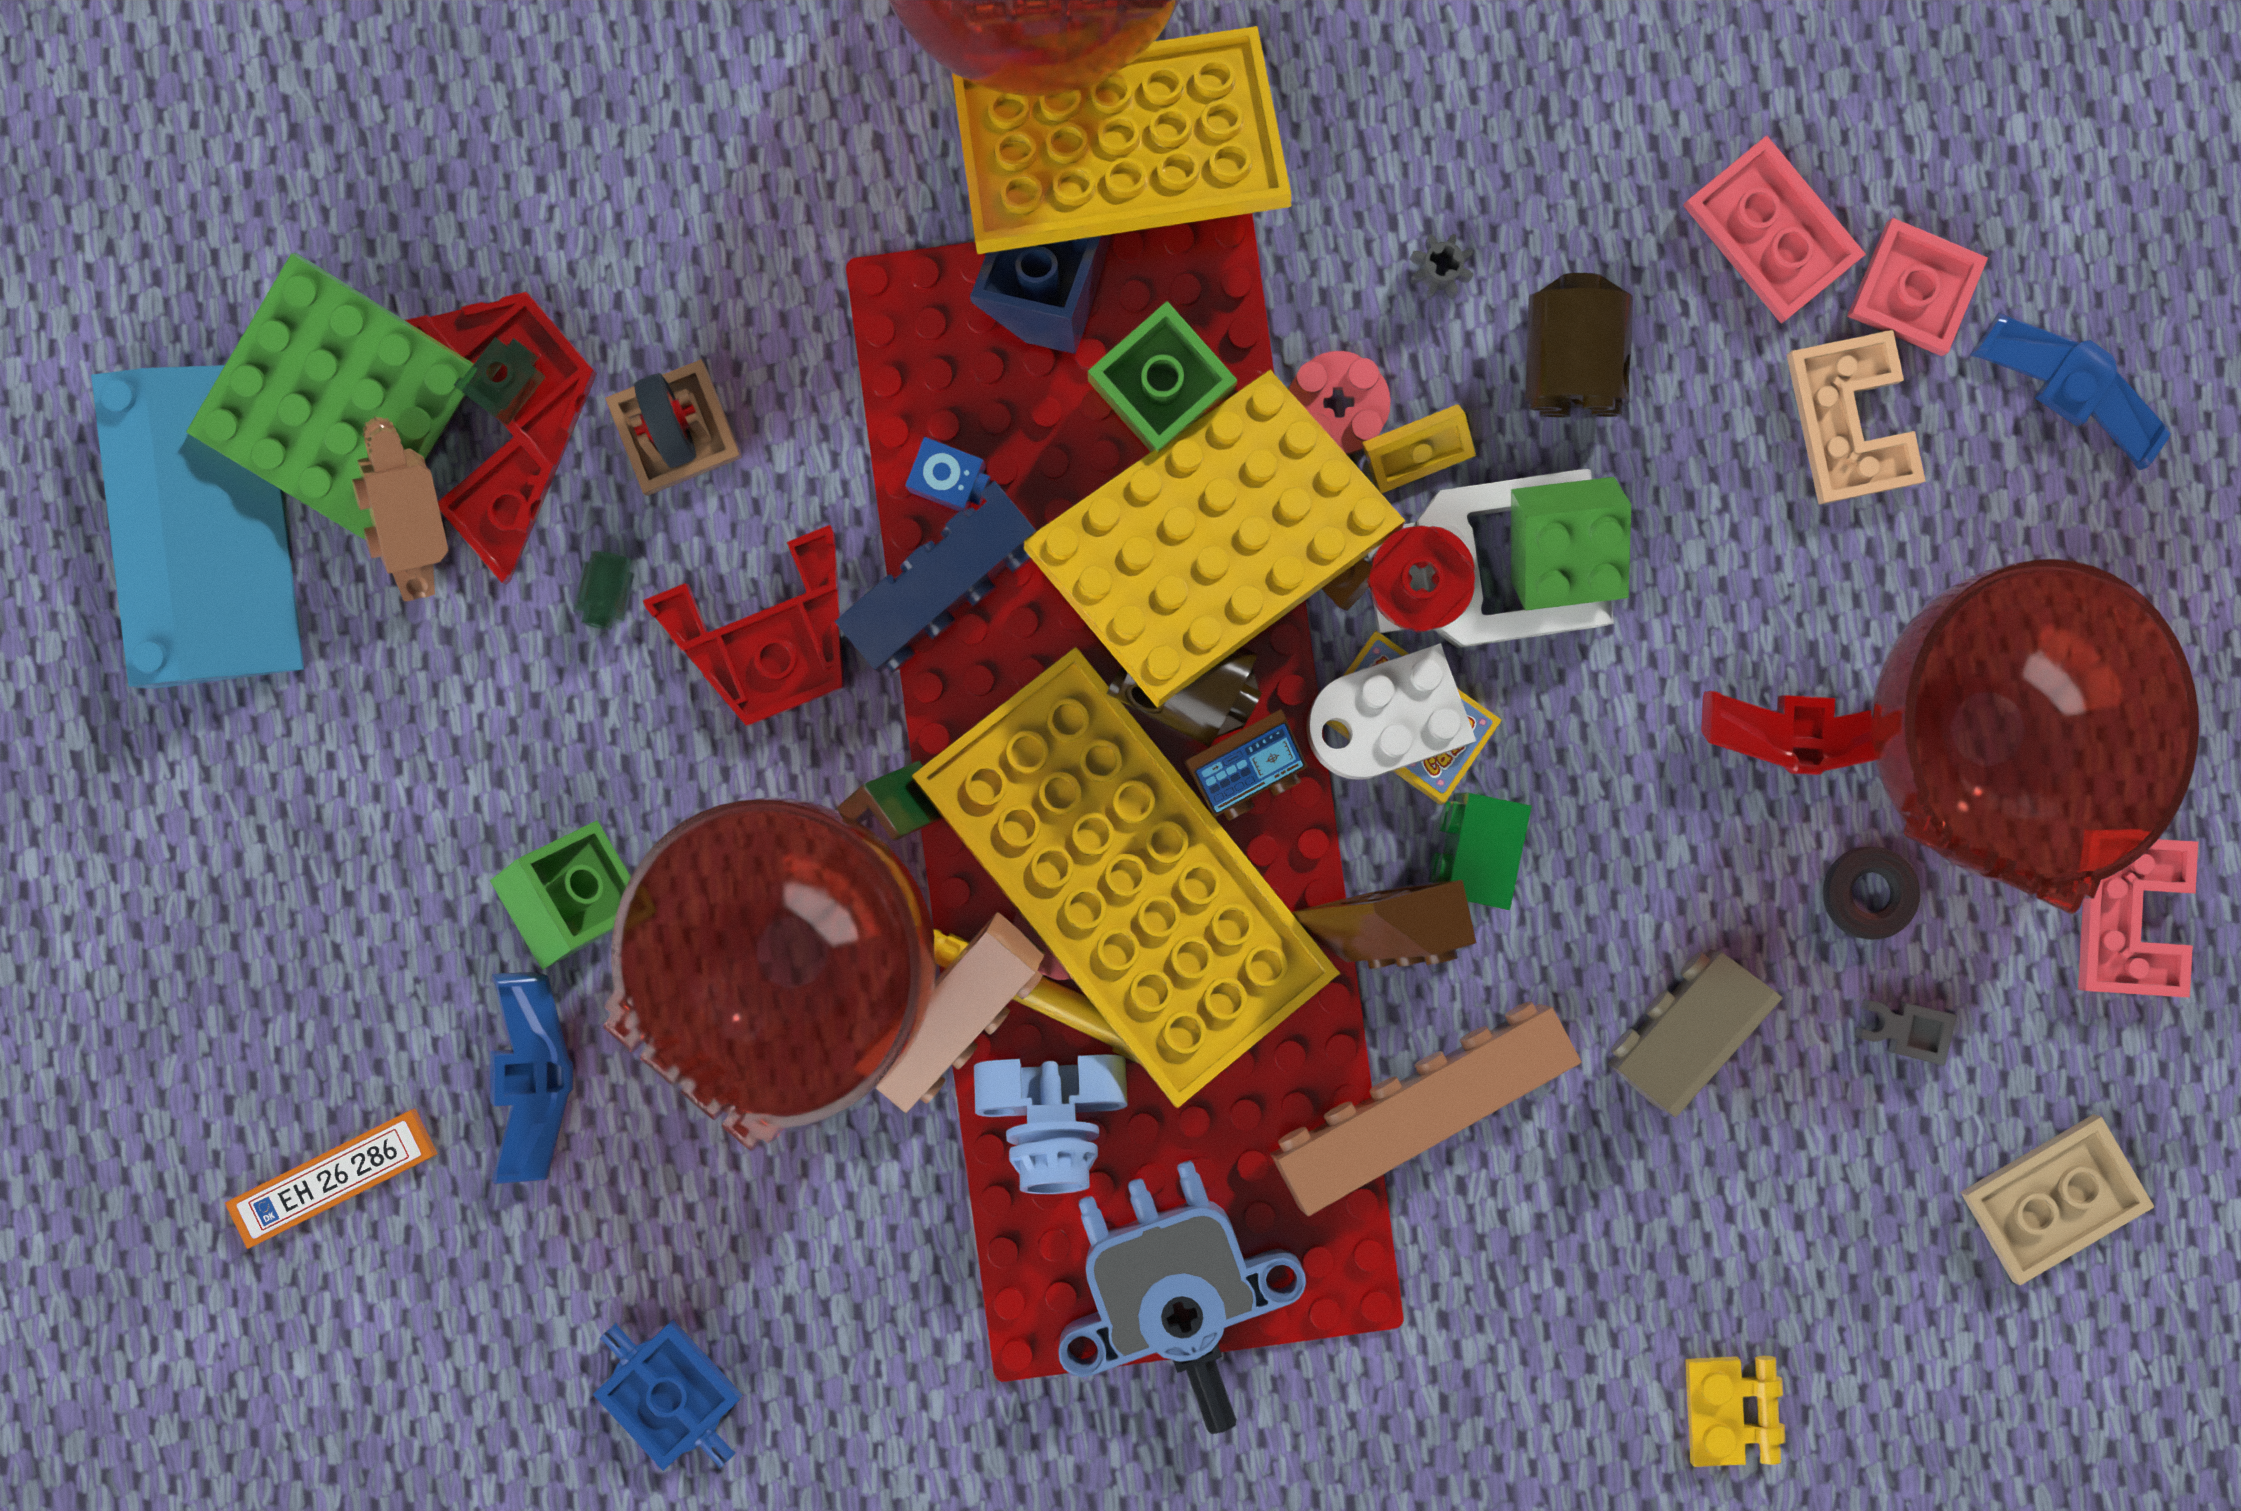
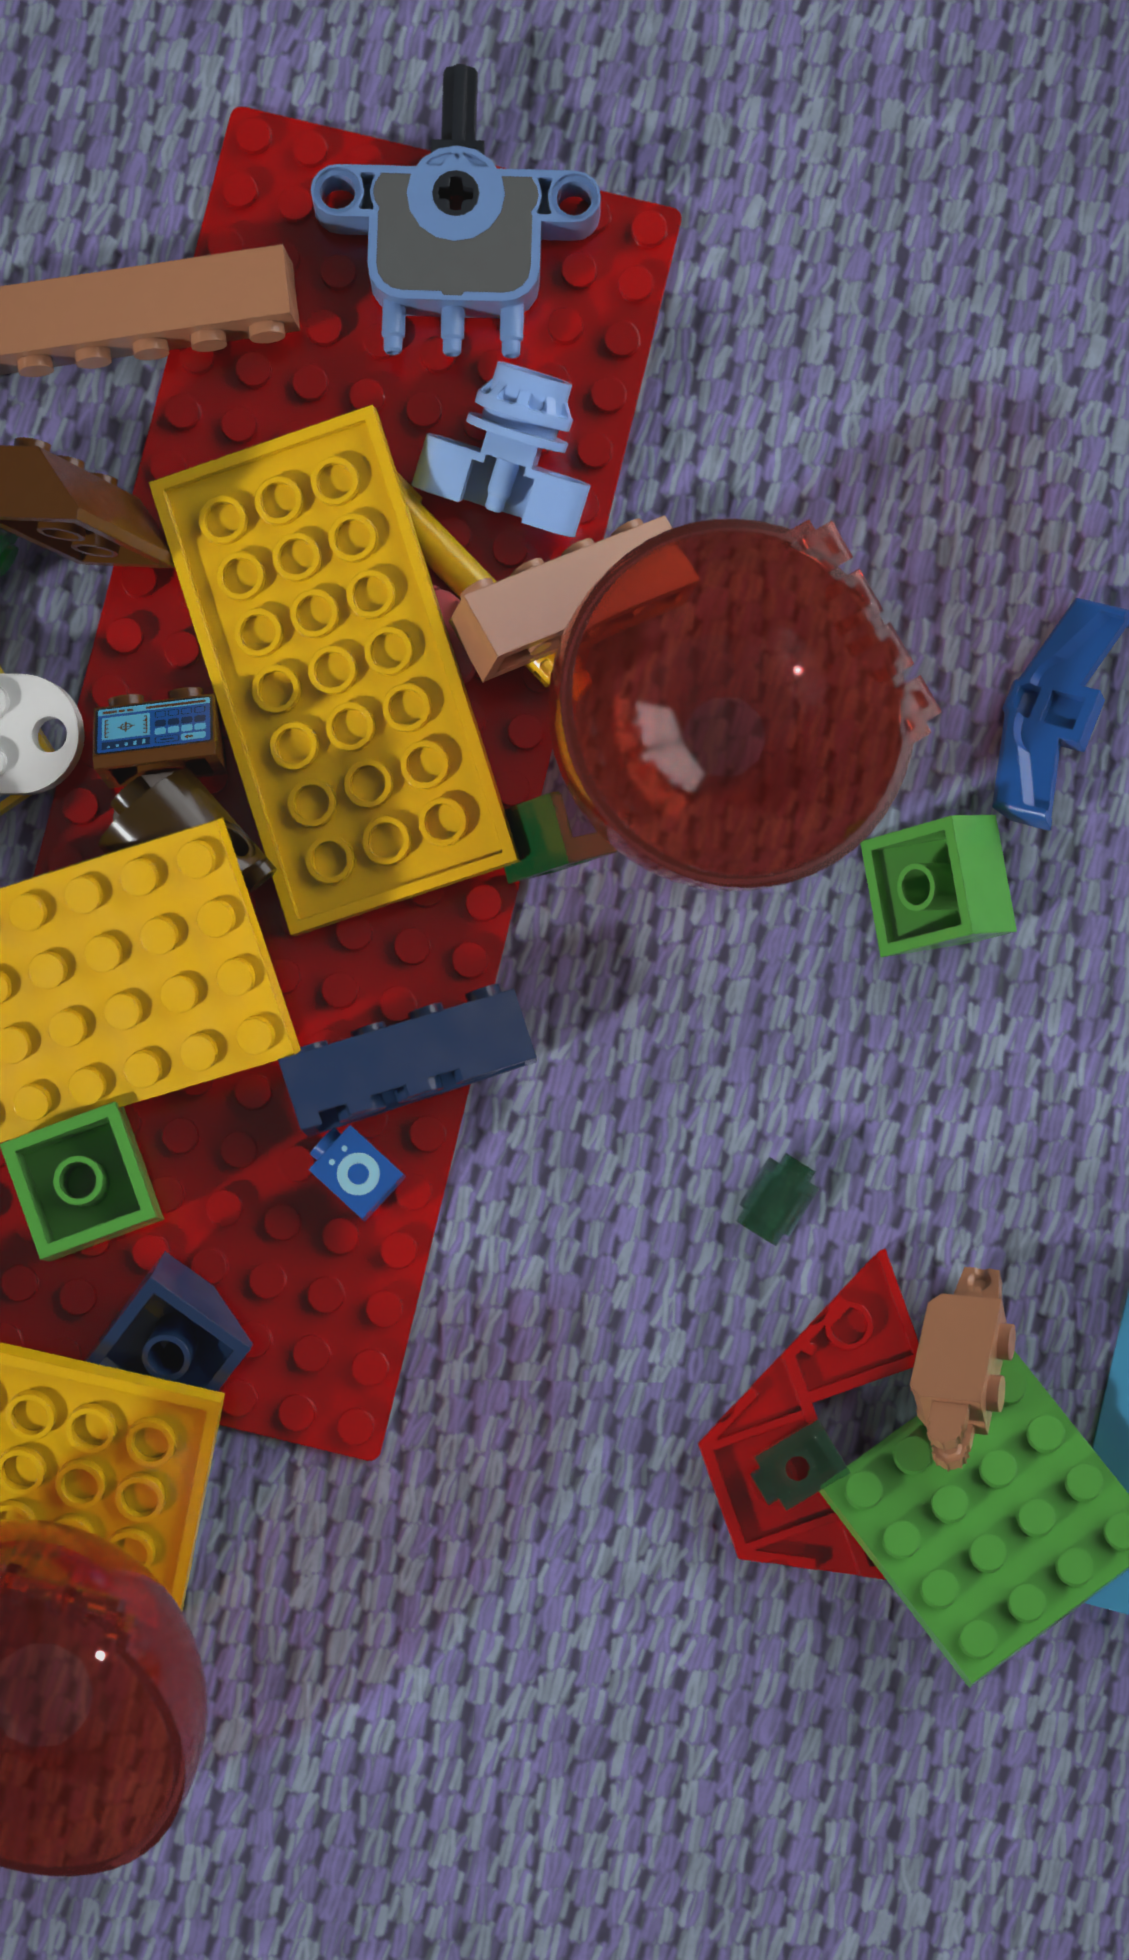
camera: 160 degrees left, 5 degrees down
(667, 1395) = (1030, 326): blue plate -> none
(673, 427) = (635, 1347): medium nougat plate -> none
(772, 656) = (621, 1056): red wing -> none

